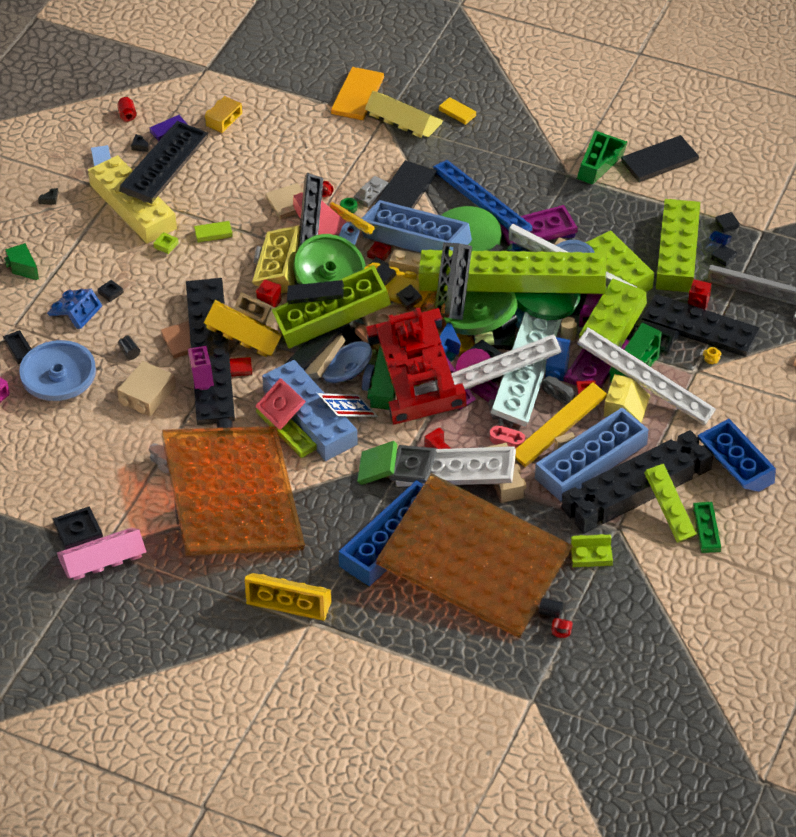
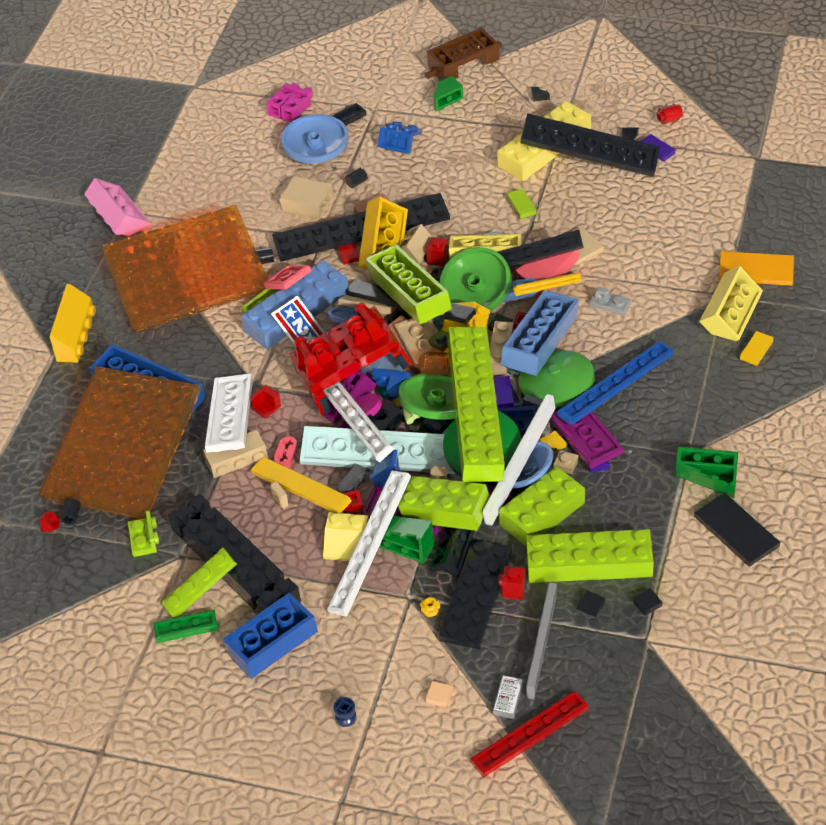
camera: 85 degrees right, 0 degrees up
(77, 527) = (147, 192): black tile -> none
(100, 154) = (602, 113): light blue tile -> none
(110, 290) = (428, 154): black tile -> none
(165, 243) = (495, 174): lime plate -> none
(200, 367) = (320, 217): magenta slope -> none
(223, 114) = (685, 177): yellow brick -> none
(315, 292) = (411, 262): black tile -> none
(327, 189) = (601, 267): red plate -> none
(349, 204) = (584, 289): green tile -> none
(377, 462) = (233, 360): bright green tile -> none
(408, 184) = (621, 326): black tile -> none
(413, 463) = (230, 382): dark grey tile -> none
(456, 280) = (440, 354): black fence -> none
(591, 453) = (263, 515): medium blue brick -> none
(720, 238) = (614, 595): clear blue tile -> none

